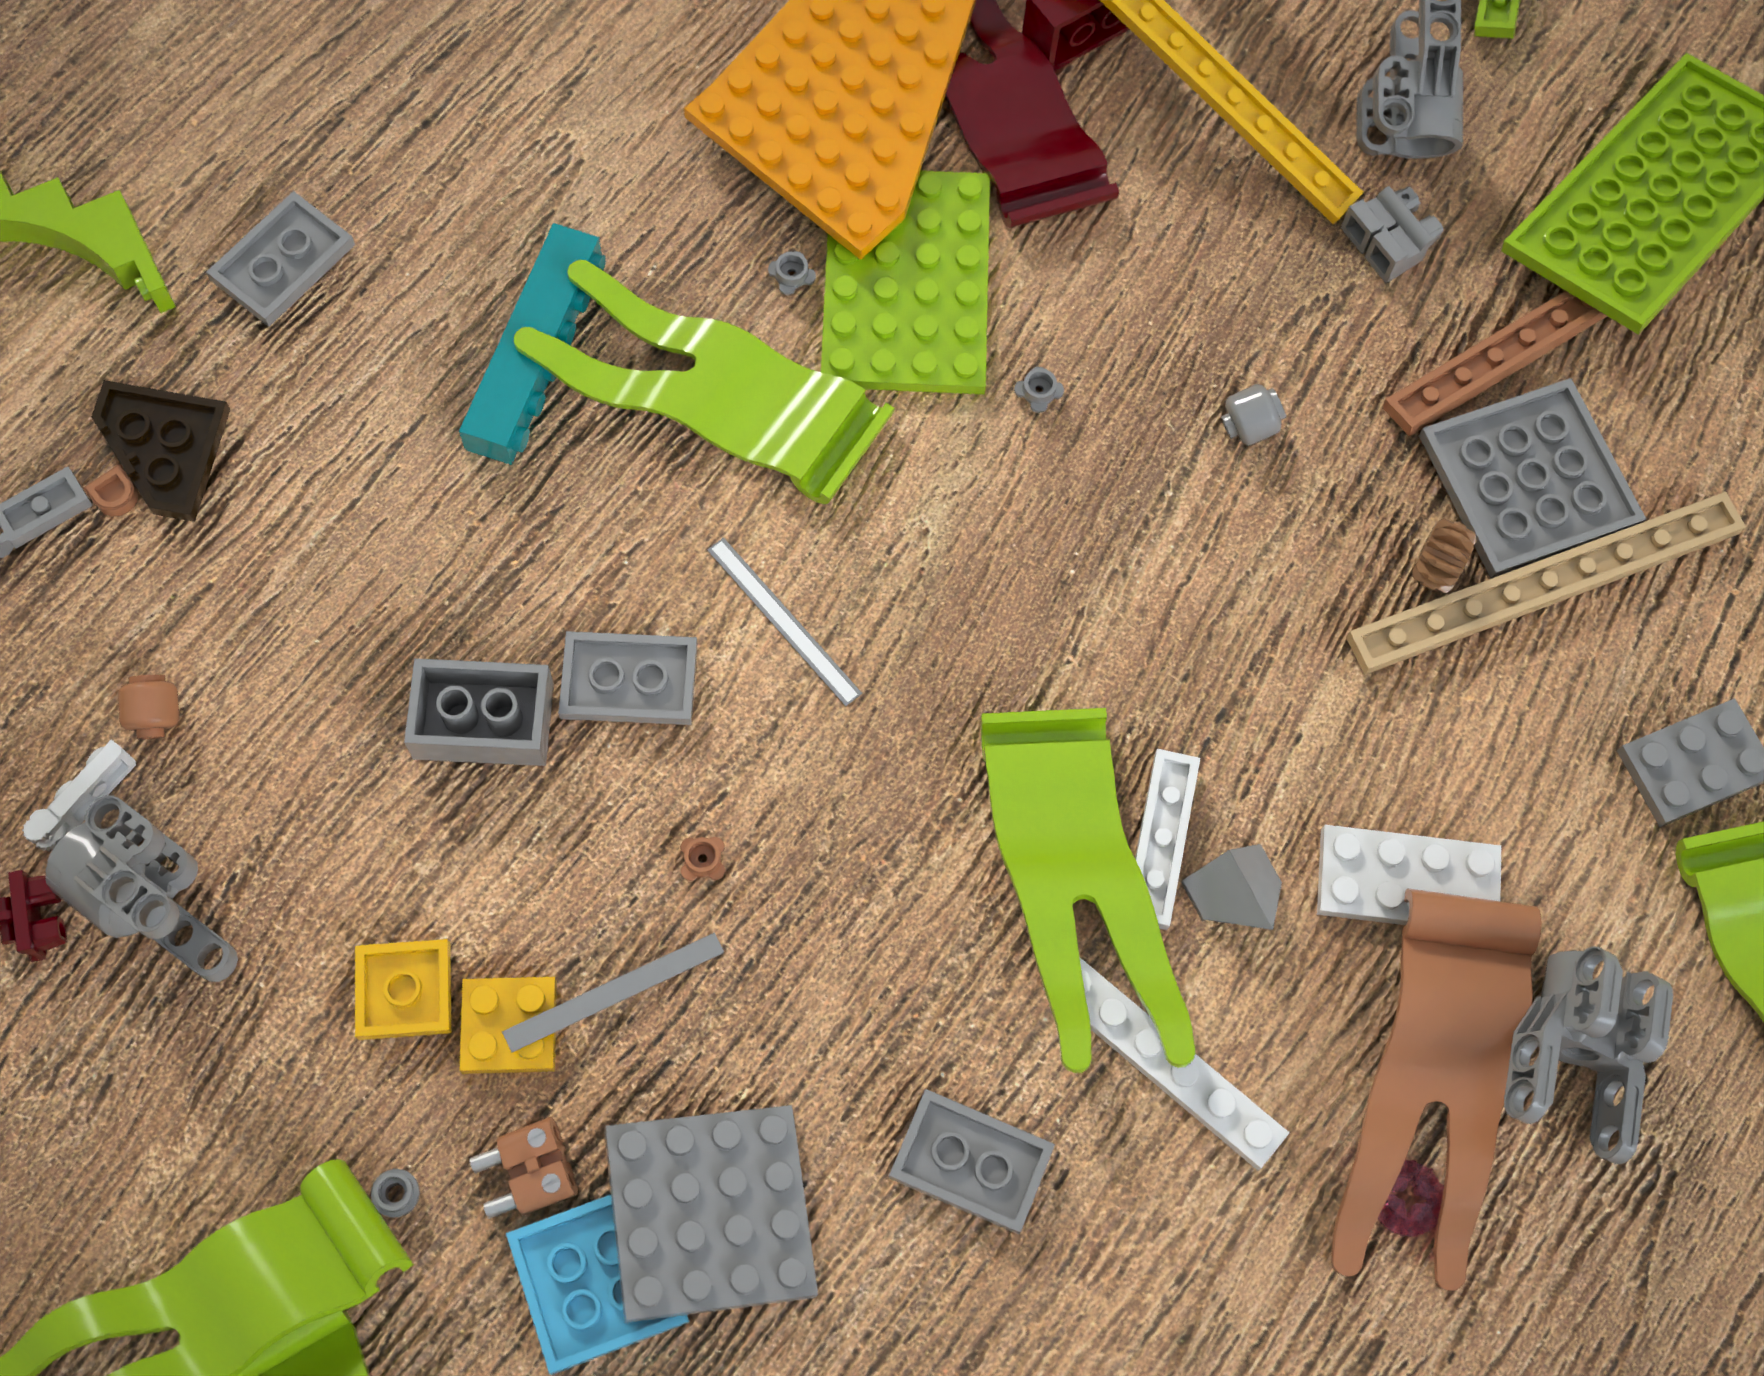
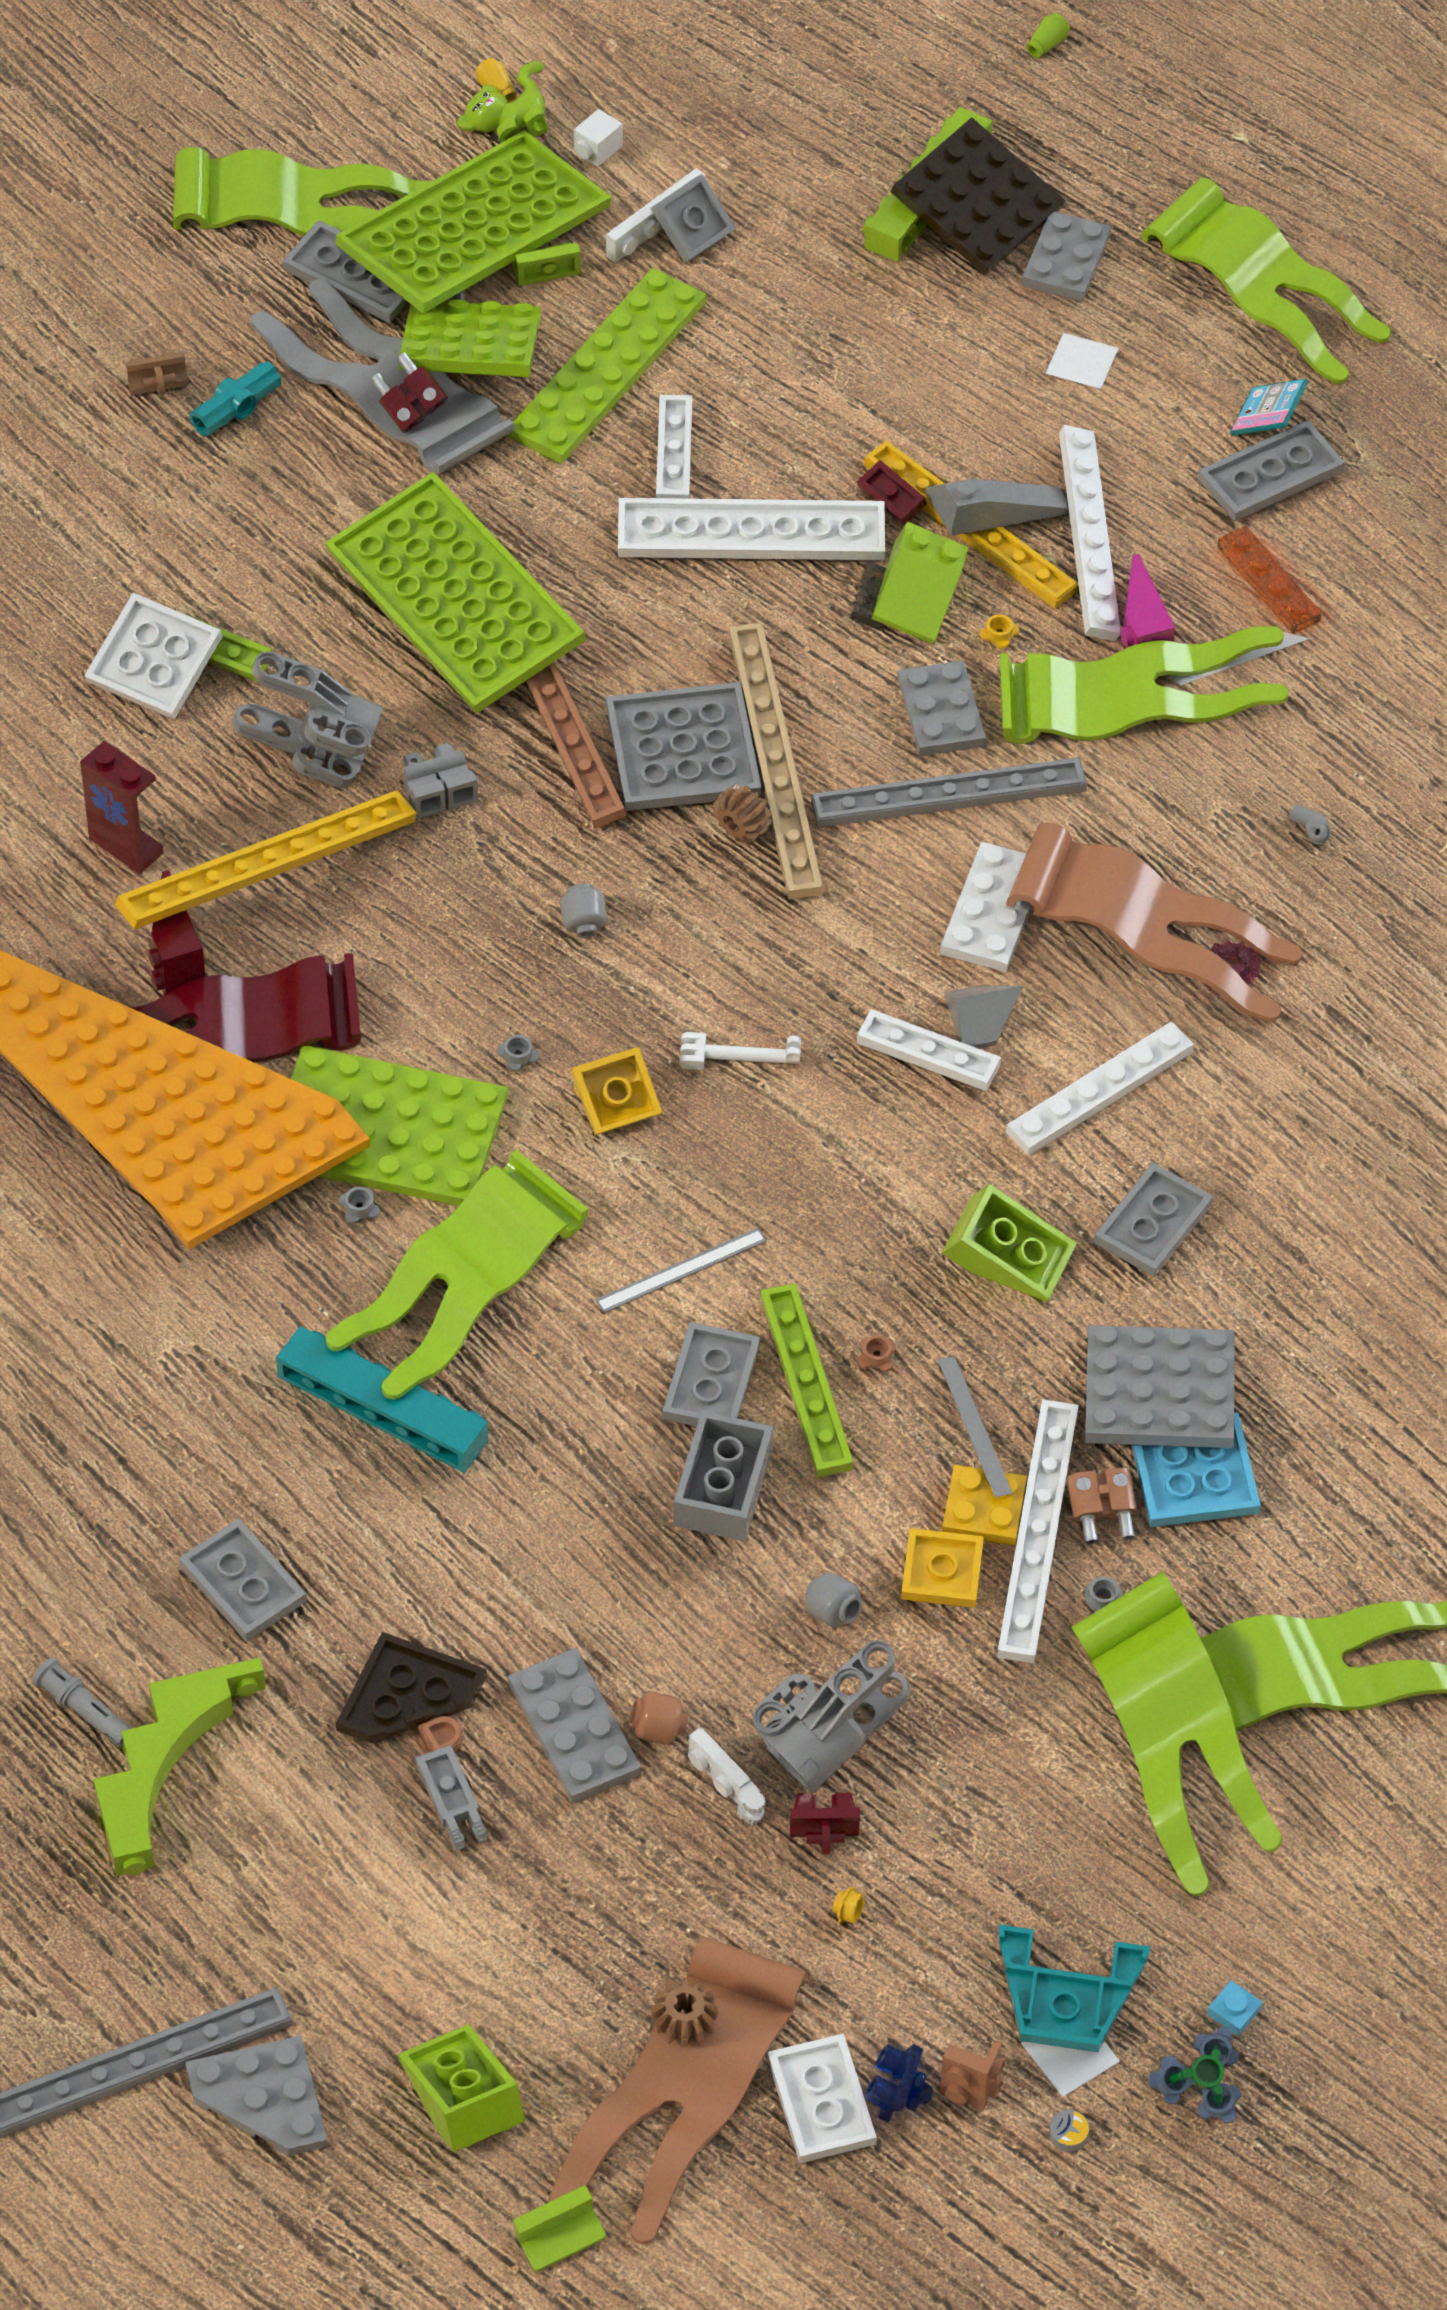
camera: 75 degrees left, 15 degrees down
(119, 132) = (71, 1693): none -> light grey pin
(141, 623) = (574, 1725): none -> light grey plate
(334, 869) = (833, 1600): none -> light grey head
(474, 1095) = (1037, 1531): none -> white plate
(645, 784) = (806, 1380): none -> lime plate
(887, 988) = (1009, 1244): none -> lime slope
(1003, 496) = (616, 1091): none -> yellow slope
(1067, 844) = (921, 1111): lime flag -> none
(1114, 680) = (695, 1051): none -> white hinge
(1571, 799) = (948, 792): none -> light grey tile
(1594, 1027) = (1135, 814): light grey piece -> none
(1674, 1274) = (1314, 822): none -> light grey arm

